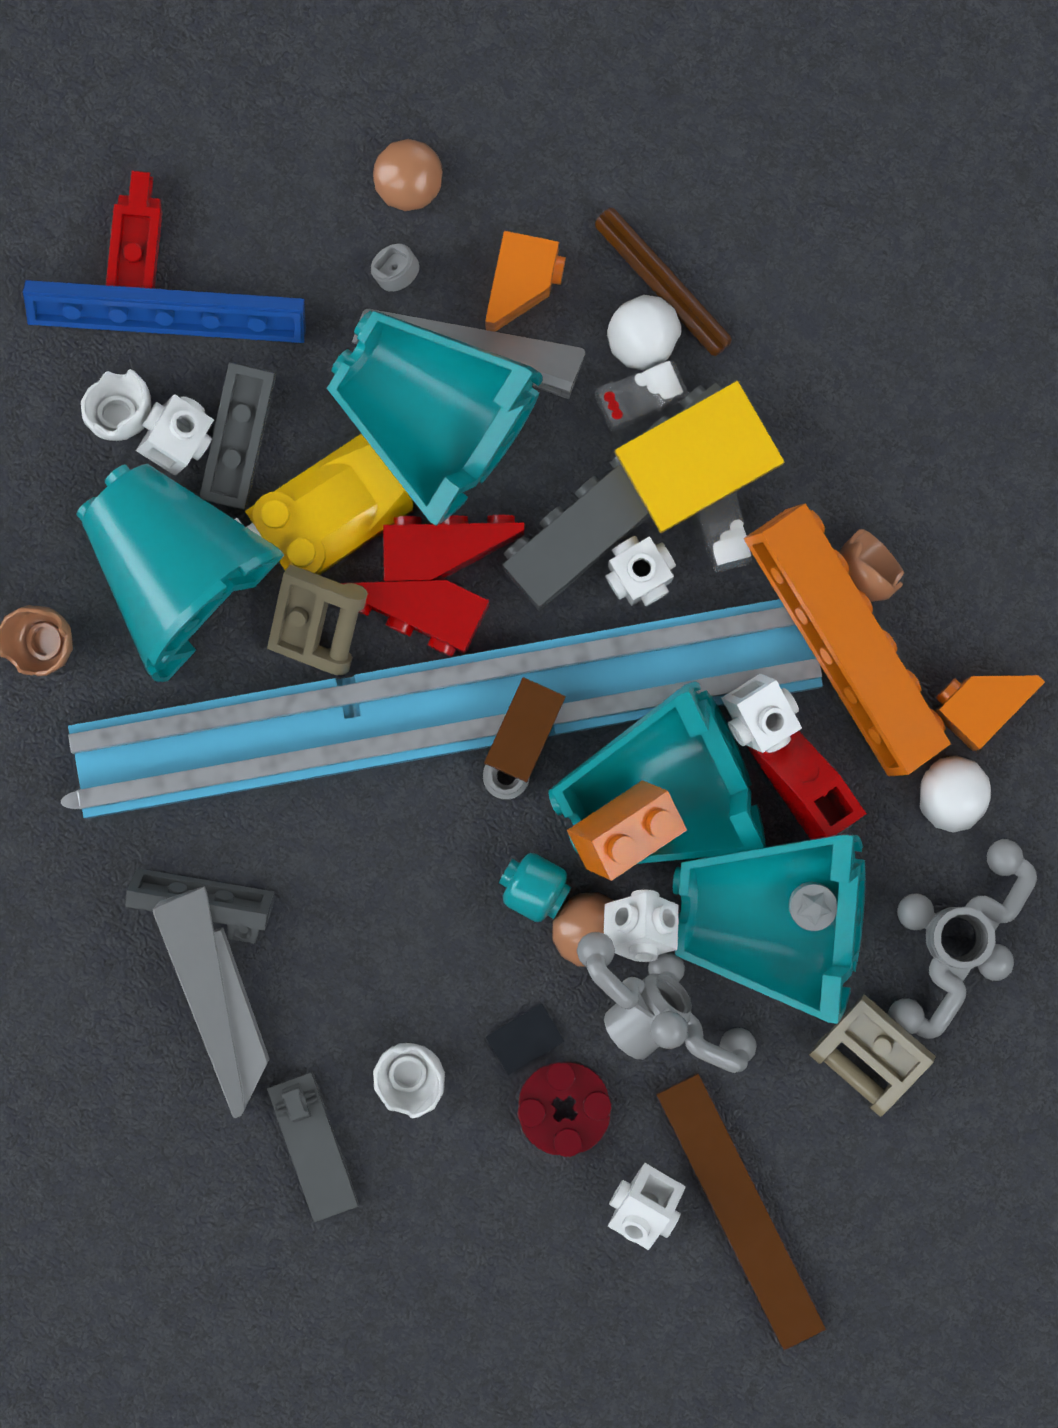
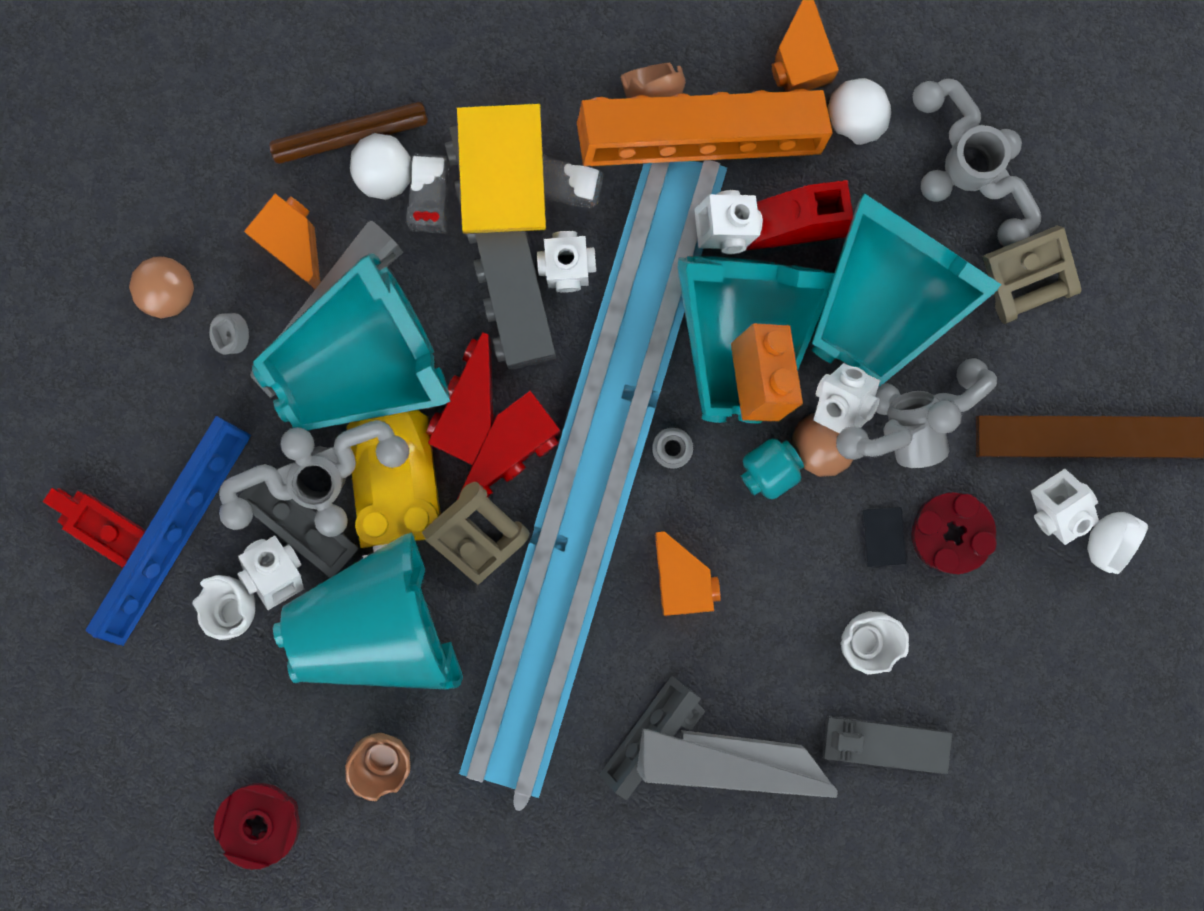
camera: 65 degrees left, 0 degrees up
(271, 405) = (286, 481): none -> light grey wheel
(376, 853) = (683, 579): none -> orange slope
(524, 729) = (646, 413): reddish brown tile -> none
(638, 1278) = (1115, 541): none -> white hair
(813, 906) = (894, 260): light grey tile -> none

